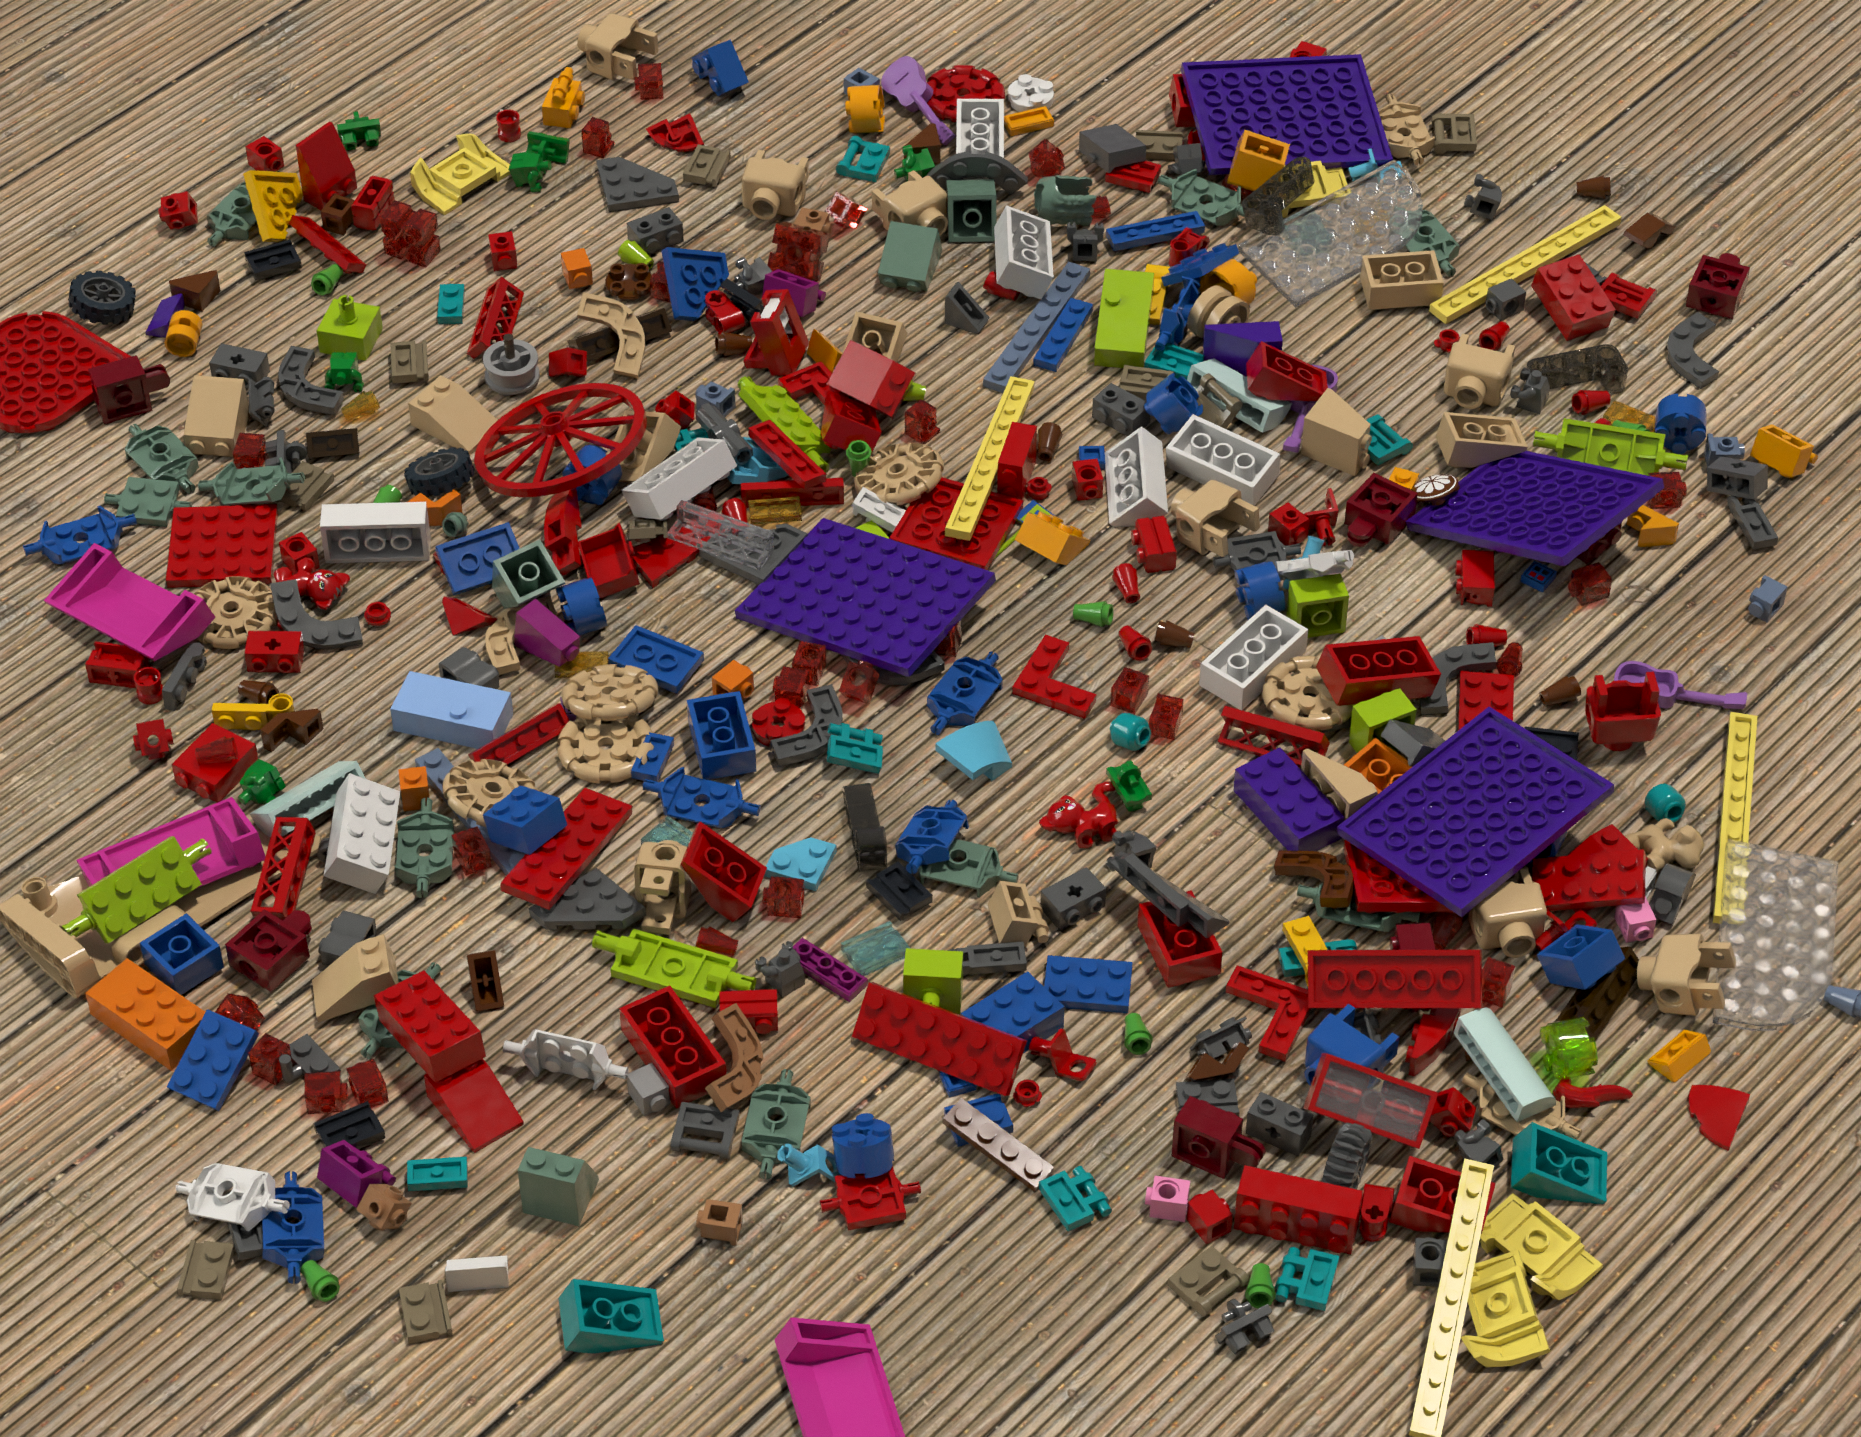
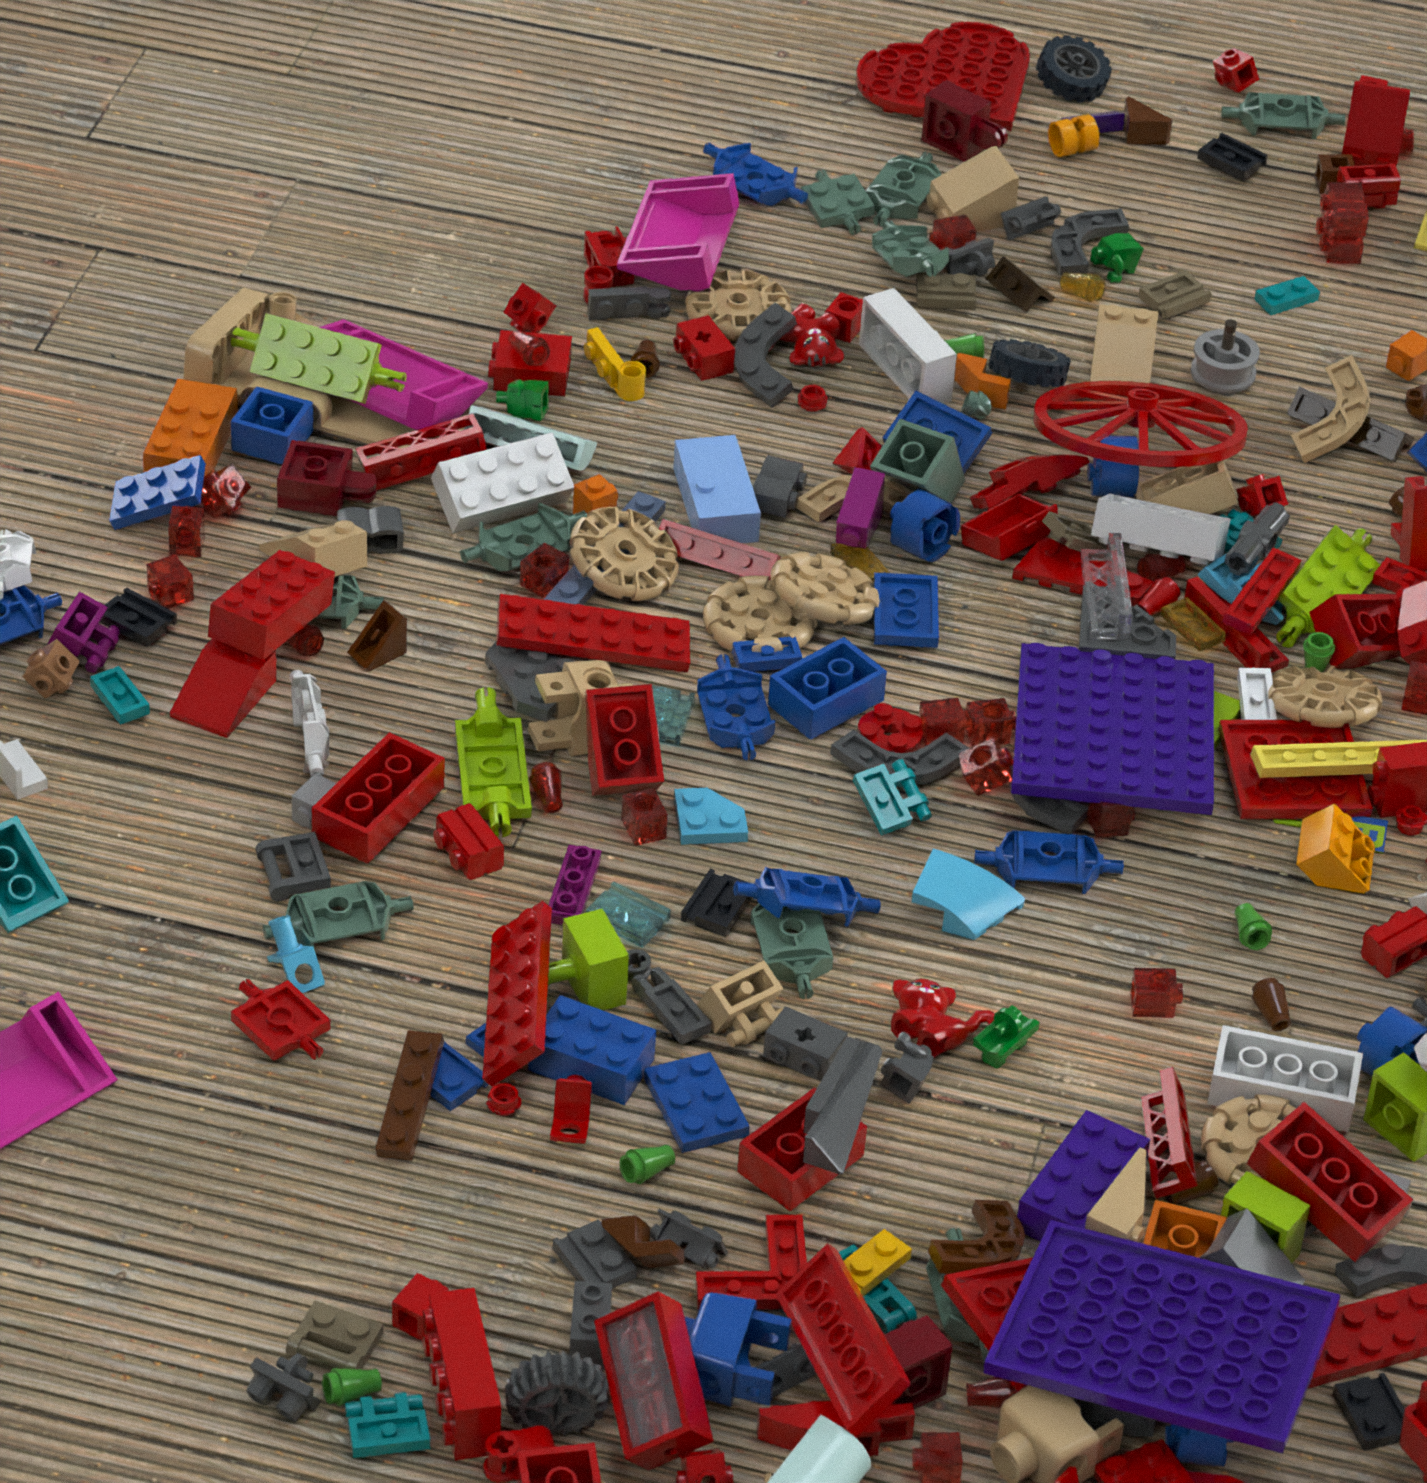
camera: 60 degrees right, 5 degrees down
(221, 543) = (821, 264): red plate -> none
(239, 363) = (1063, 186): dark grey brick -> none
(273, 201) = (1300, 120): yellow plate -> none
(299, 725) = (613, 389): reddish brown slope -> none
(306, 1058) = (209, 563): dark grey plate -> none
(325, 280) = (1235, 199): bright green cone -> none
(327, 244) = (1286, 182): red plate -> none
(349, 327) = (1179, 236): lime brick -> none
(367, 1083) = (194, 606): clear red brick -> none
(491, 314) = (1285, 323): red fence -> none
(502, 251) = (1390, 299): red brick -> none
(525, 819) = (591, 578): blue brick -> none
(555, 1186) = (147, 772): sand green slope -> none
(568, 362) = (1271, 400): red panel -> none
(716, 395) = (1316, 516): sand blue brick -> none
(720, 1221) = (178, 916): medium nougat brick -> none
(733, 678) = (915, 676): orange brick -> none
(746, 1059) = (390, 862): medium nougat plate -> none
(783, 971) = (541, 847): dark grey piece -> none
(863, 1146) = (330, 981): blue brick -> none
(865, 830) = (785, 844): clear smoke beam -> none
(1036, 681) = (1110, 914): red plate -> none
(1068, 1202) = (374, 1178): teal plate -> none
(1127, 582) = (1323, 937): red cone -> none
(1130, 731) = (1090, 1012): teal head -> none
(1135, 643) = (1232, 976): red cone -> none
(1166, 716) = (1137, 1037): clear red brick -> none
(1178, 1196) = (425, 1256): bright pink brick -> none
(1212, 1139) = (522, 1262): dark red brick -> none

